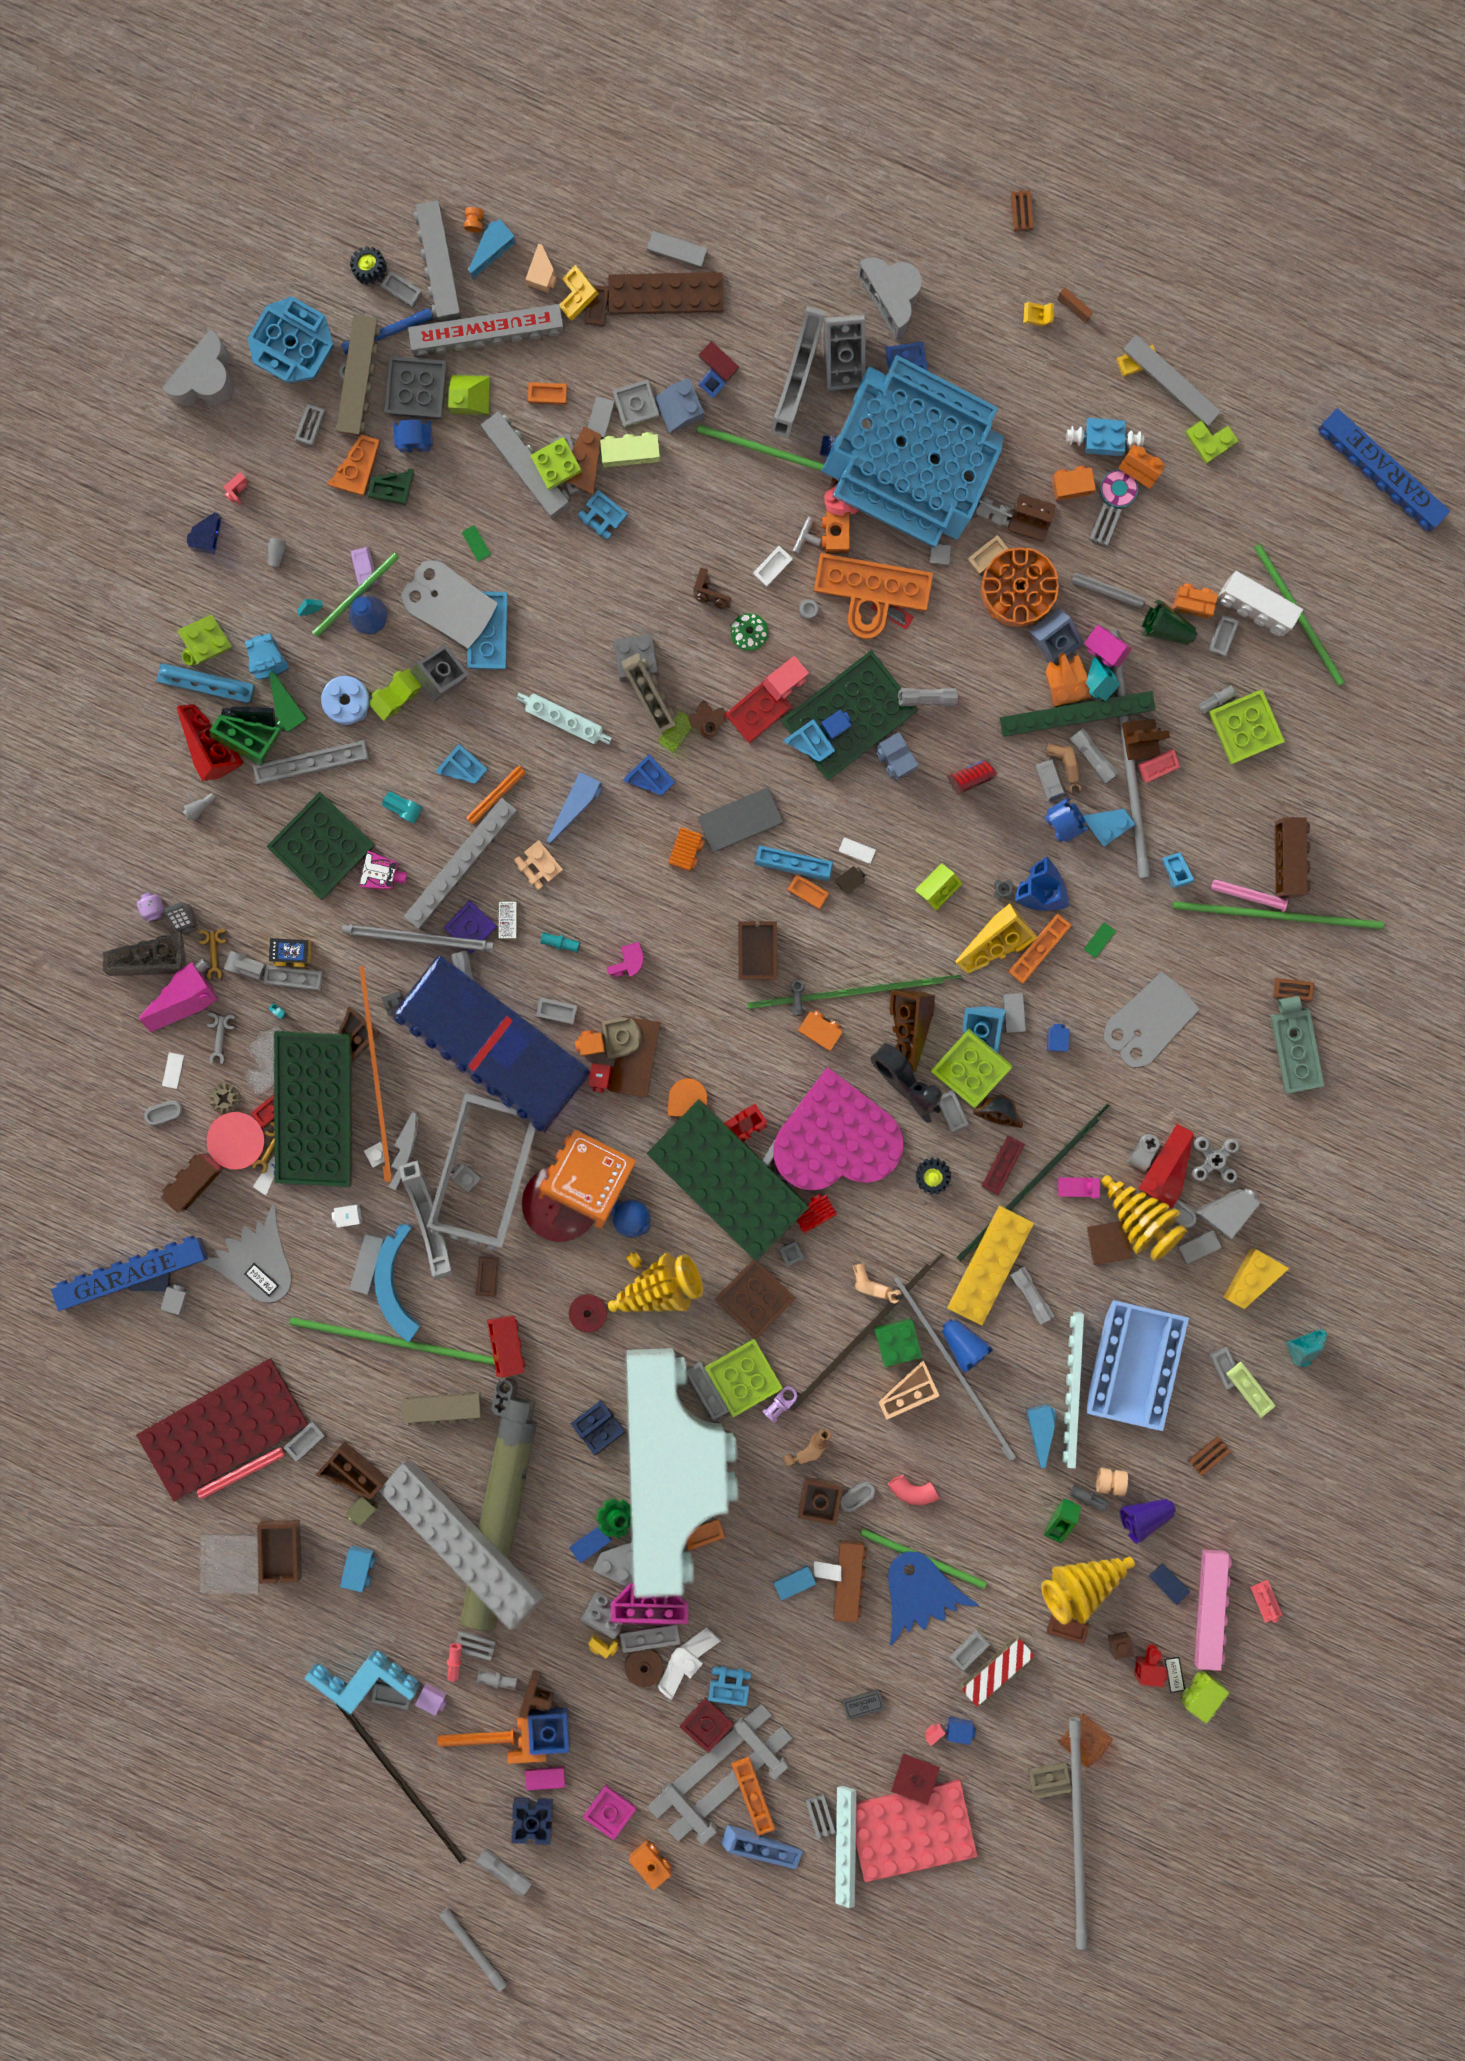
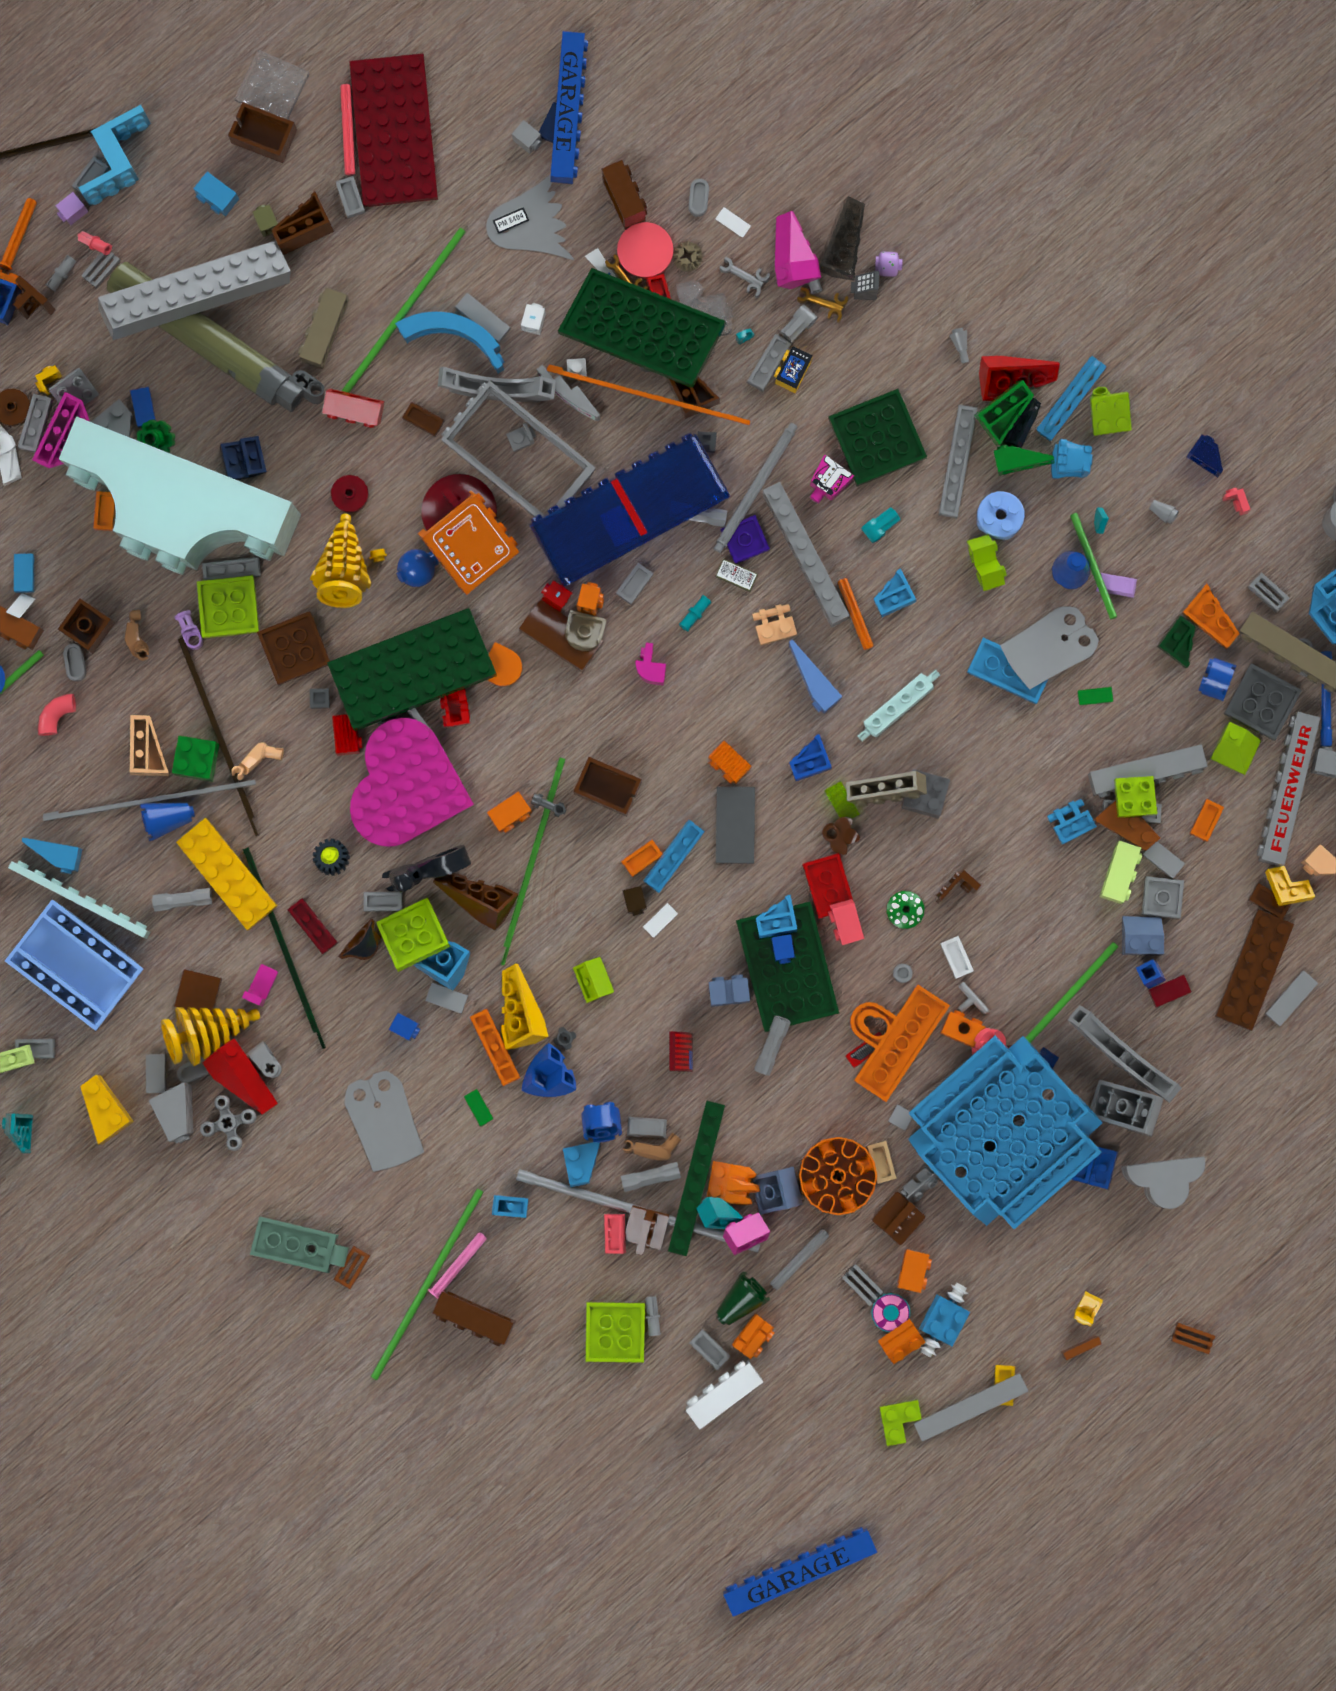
camera: 125 degrees right, 5 degrees down
(439, 673) = (988, 609): flat silver brick -> none
(1302, 619) = (695, 1430): bright green piece -> none

